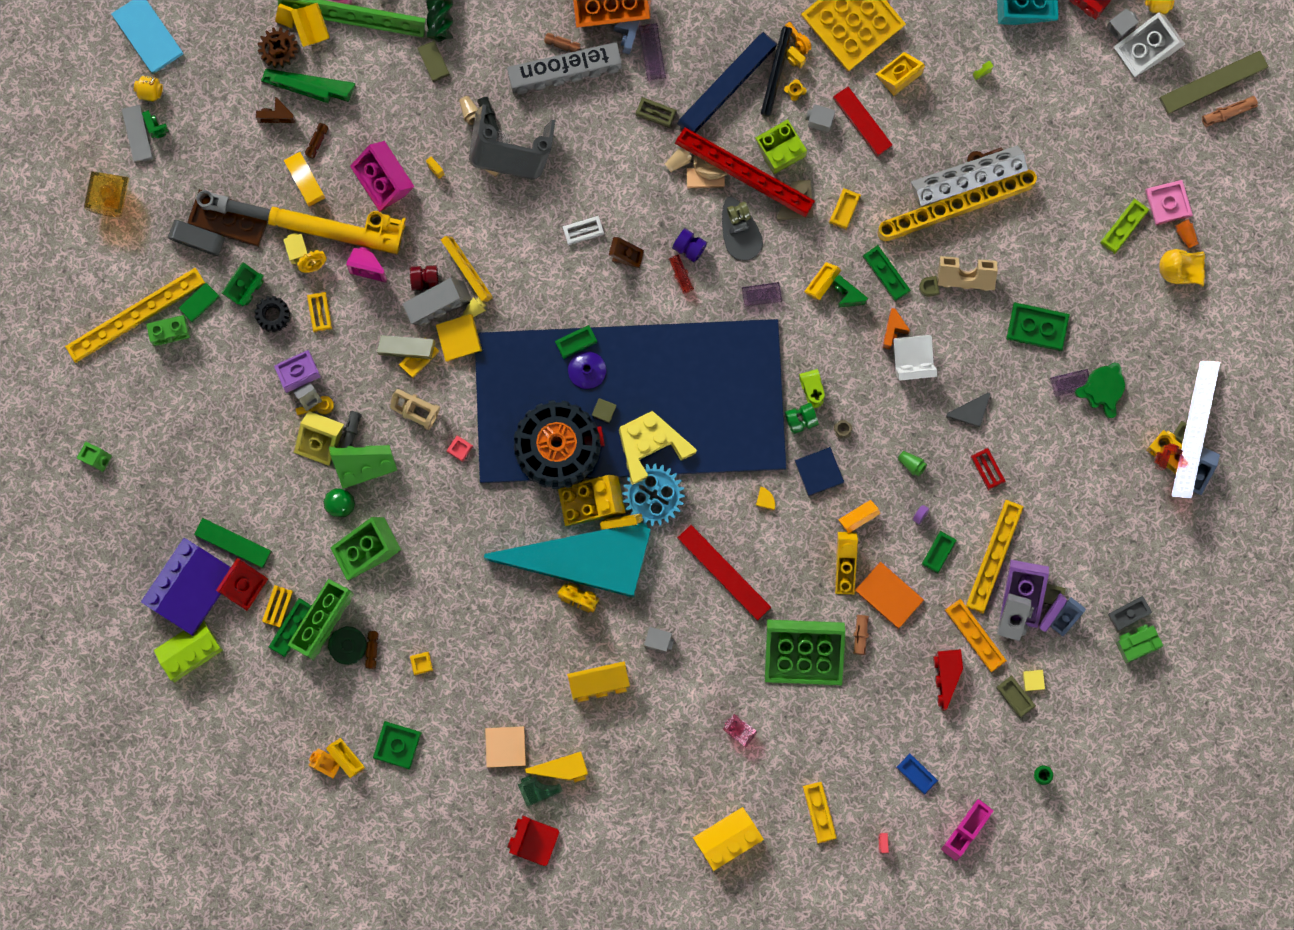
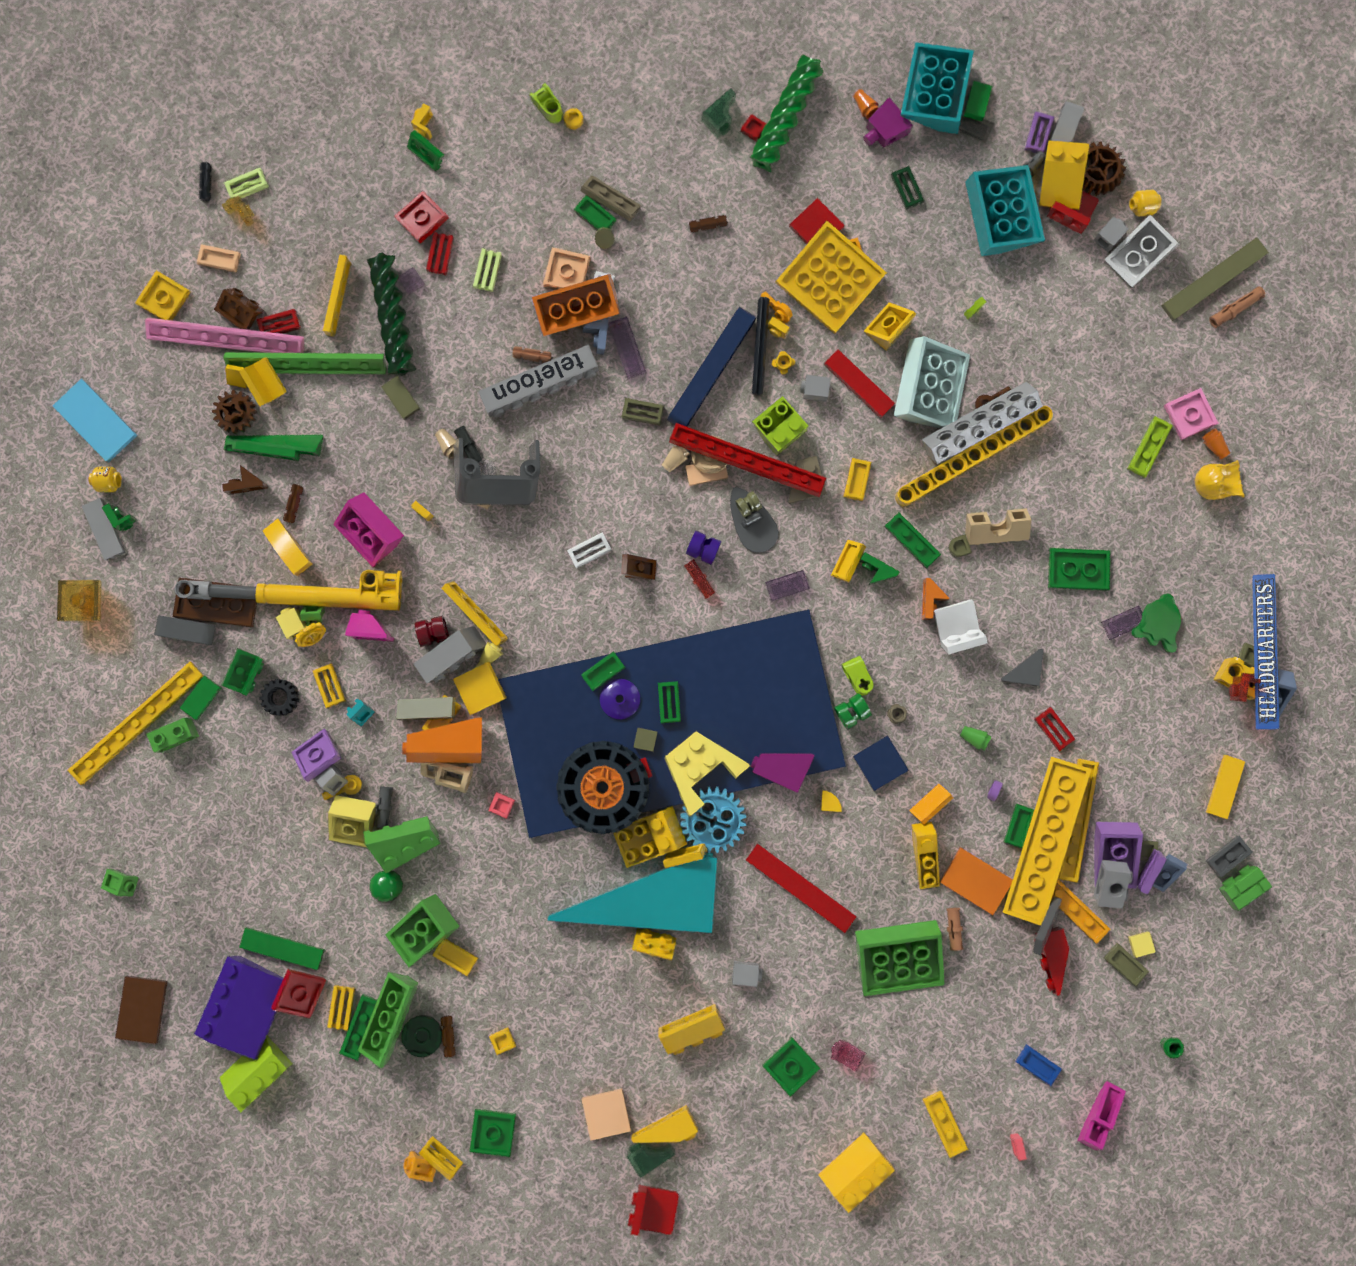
camera: 10 degrees left, 5 degrees up
(93, 575) = (141, 1009): none -> reddish brown tile
(316, 242) = (312, 613): none -> bright green tile
(344, 340) = (360, 712): none -> teal tile
(391, 579) = (455, 957): none -> yellow tile
(419, 380) = (446, 744): none -> orange slope
(631, 396) = (671, 719): none -> green tile
(685, 734) = (791, 1066): none -> green tile
(726, 458) = (783, 769): none -> magenta slope
(930, 132) = (931, 383): none -> light aqua slope
(945, 642) = (1047, 925): none -> dark grey tile
(961, 568) = (1047, 840): none -> yellow plate
(1138, 550) = (1225, 787): none -> yellow tile

